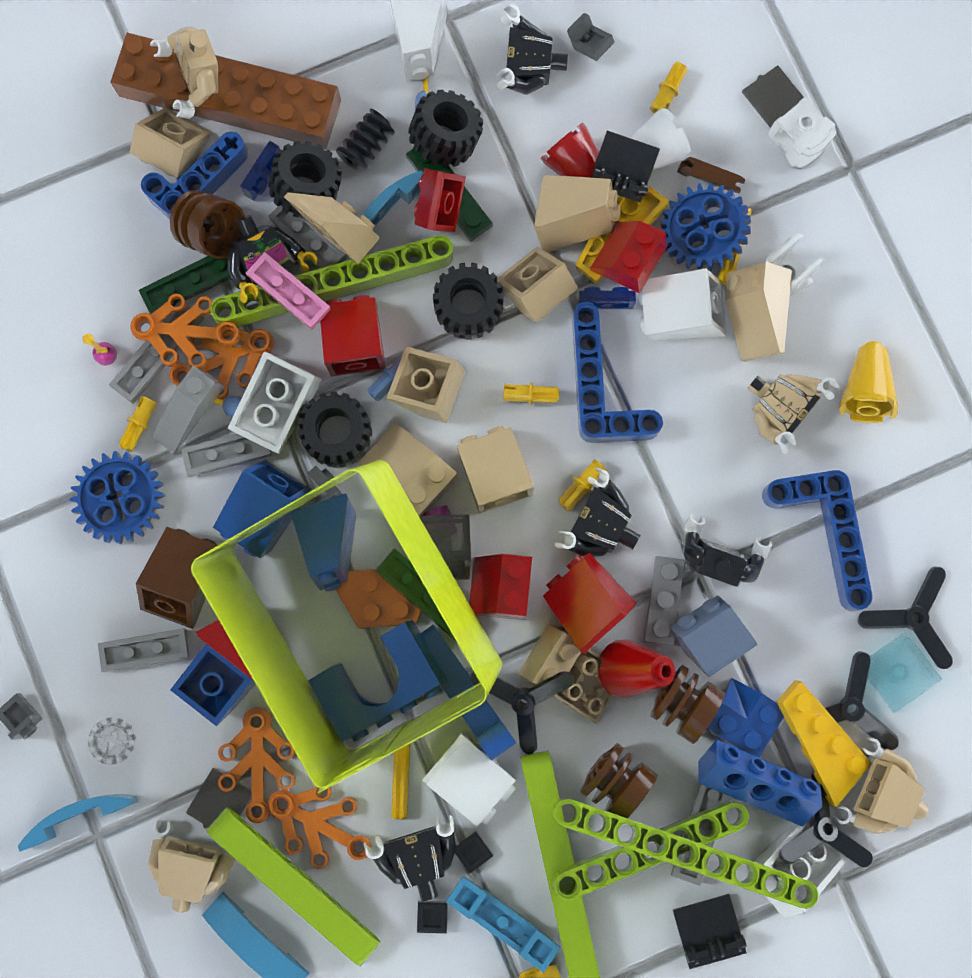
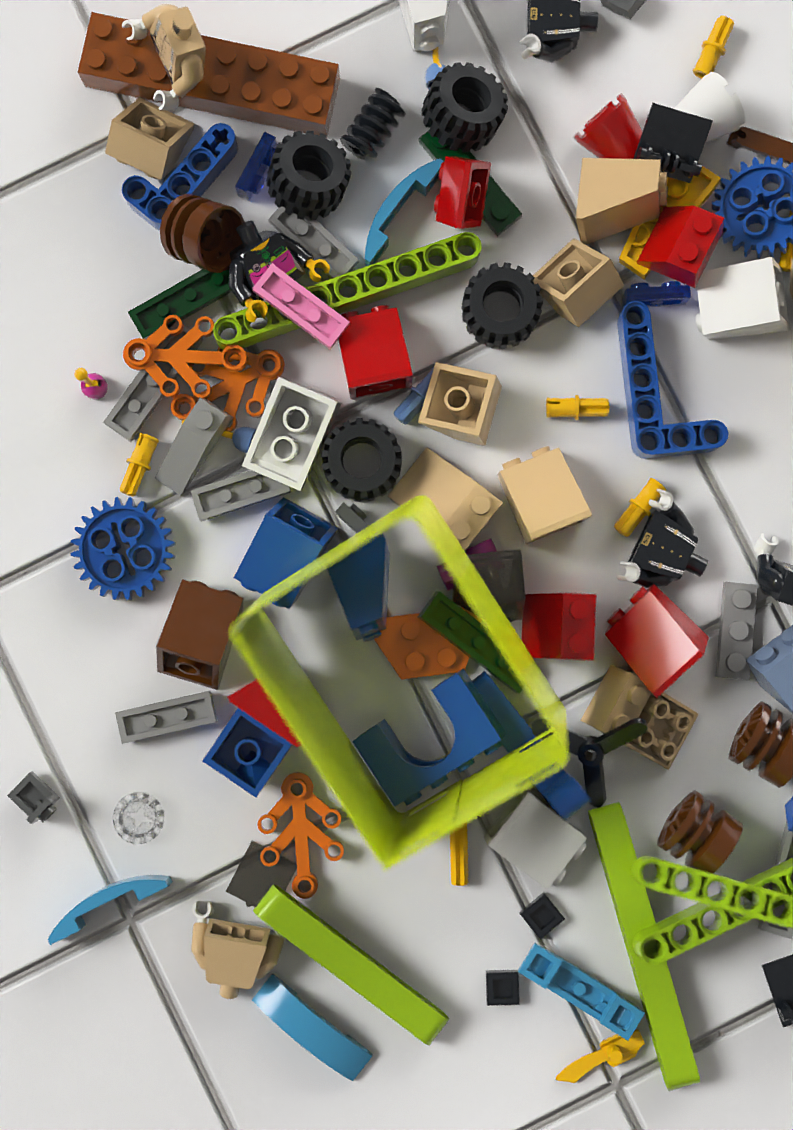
camera: 10 degrees left, 5 degrees up
(314, 823) = (368, 893): orange plant -> none
(336, 223) = (351, 226): tan slope -> none
(417, 857) = (483, 925): black torso -> none
(633, 669) = (711, 710): red cone -> none

